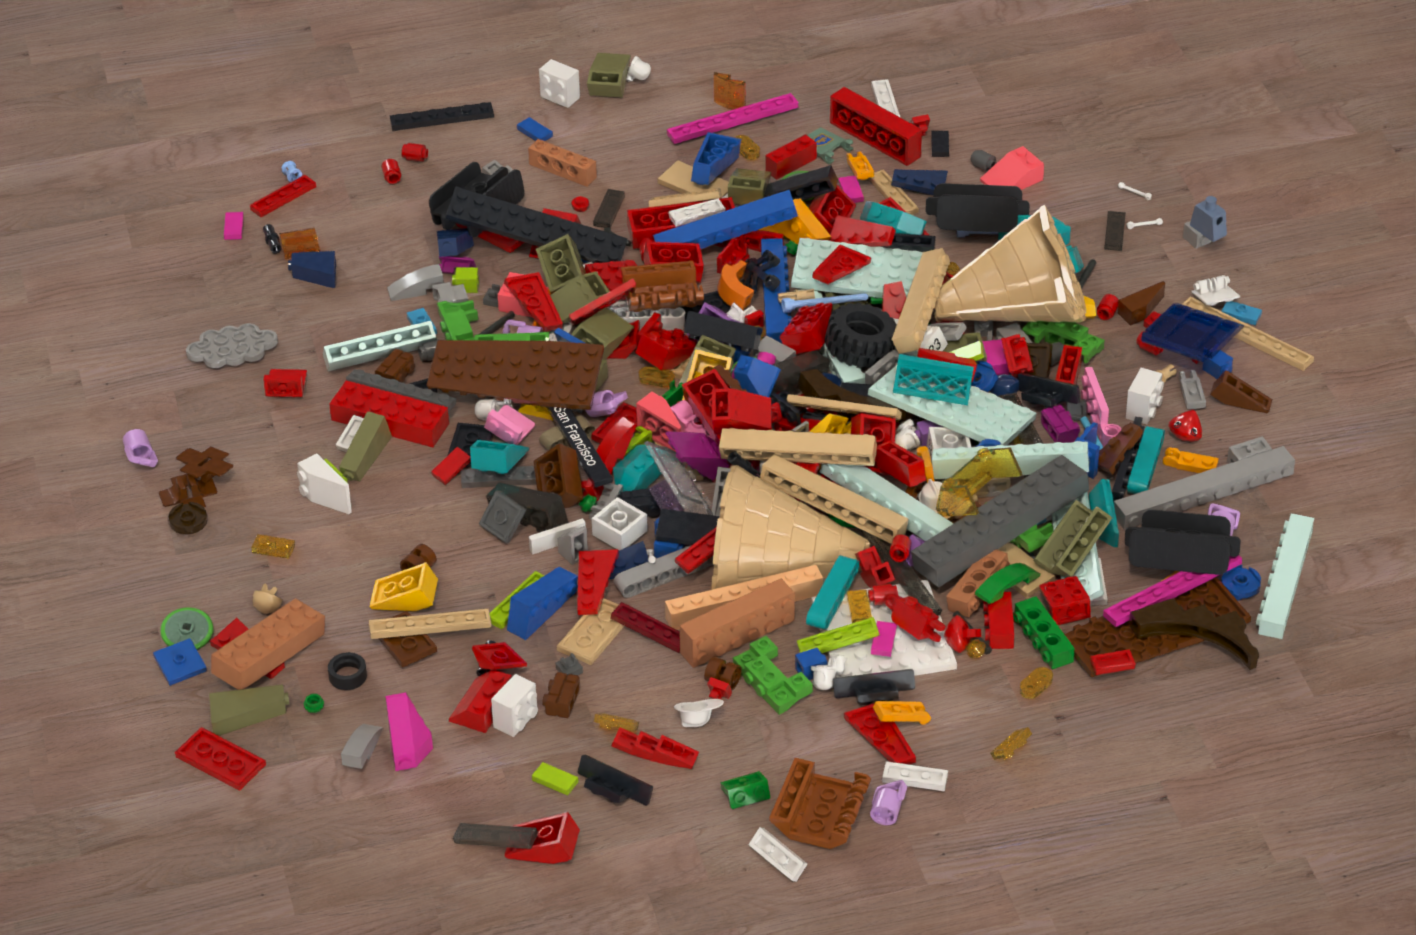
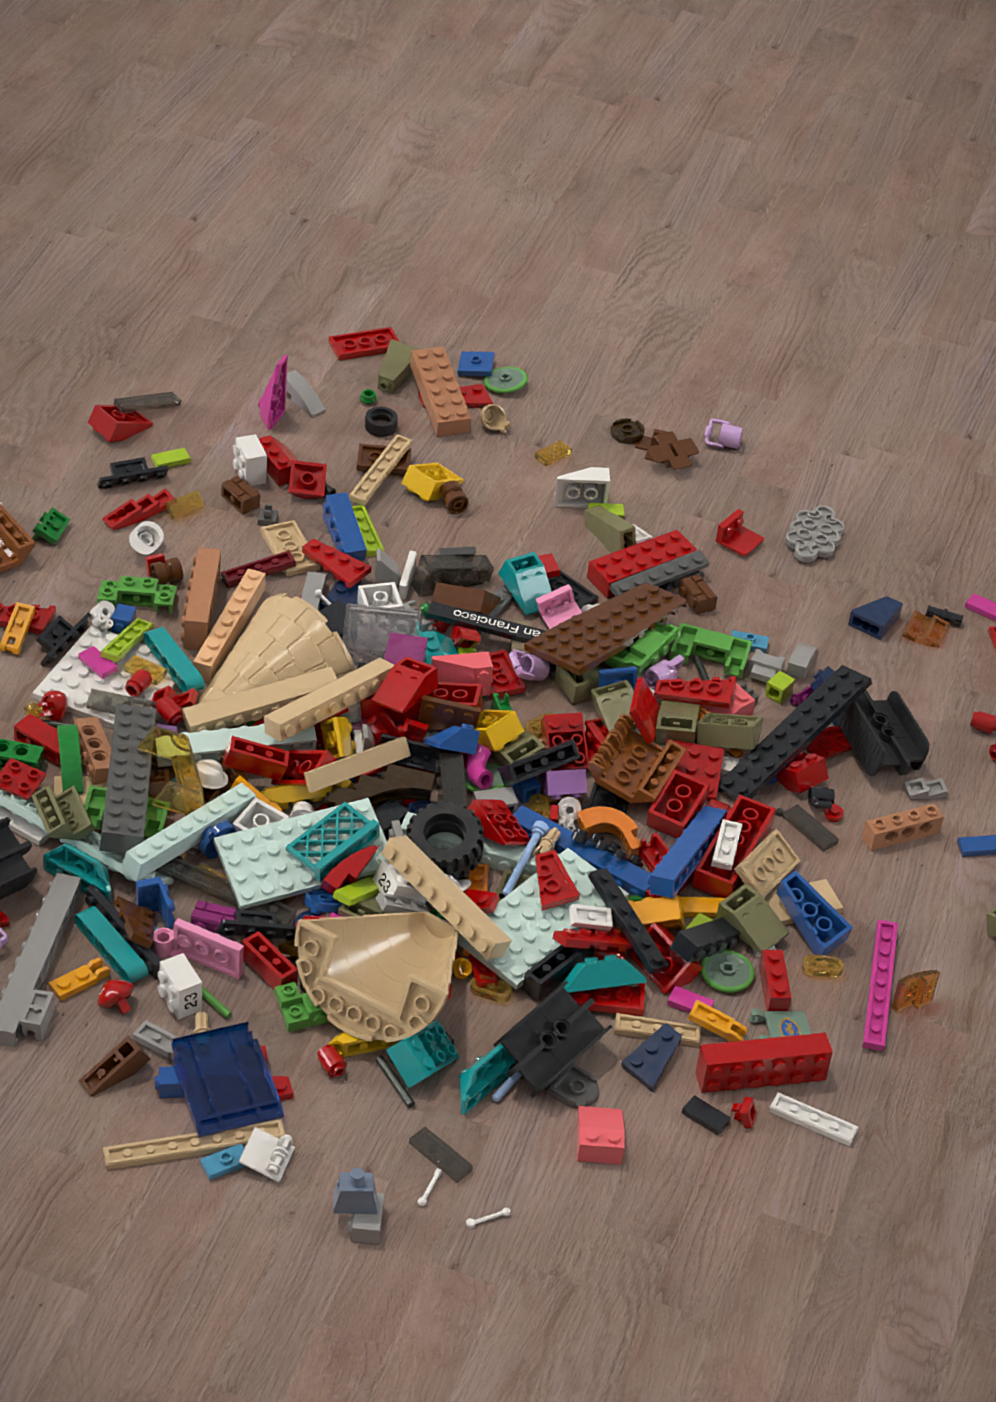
camera: 120 degrees right, 0 degrees up
(377, 345) = (730, 593): light aqua brick -> none
(427, 350) = (703, 620): dark grey brick -> none
(574, 209) = (821, 797): none -> black piece
(829, 223) = (628, 921): none -> black plate
(851, 235) = (590, 917): none -> white plate
(914, 617) = (89, 676): red hinge -> none
(983, 160) = (643, 1123): dark grey brick -> none
(1123, 404) = (214, 1002): none -> bright green bar
(1139, 305) = (309, 1084): reddish brown slope -> none

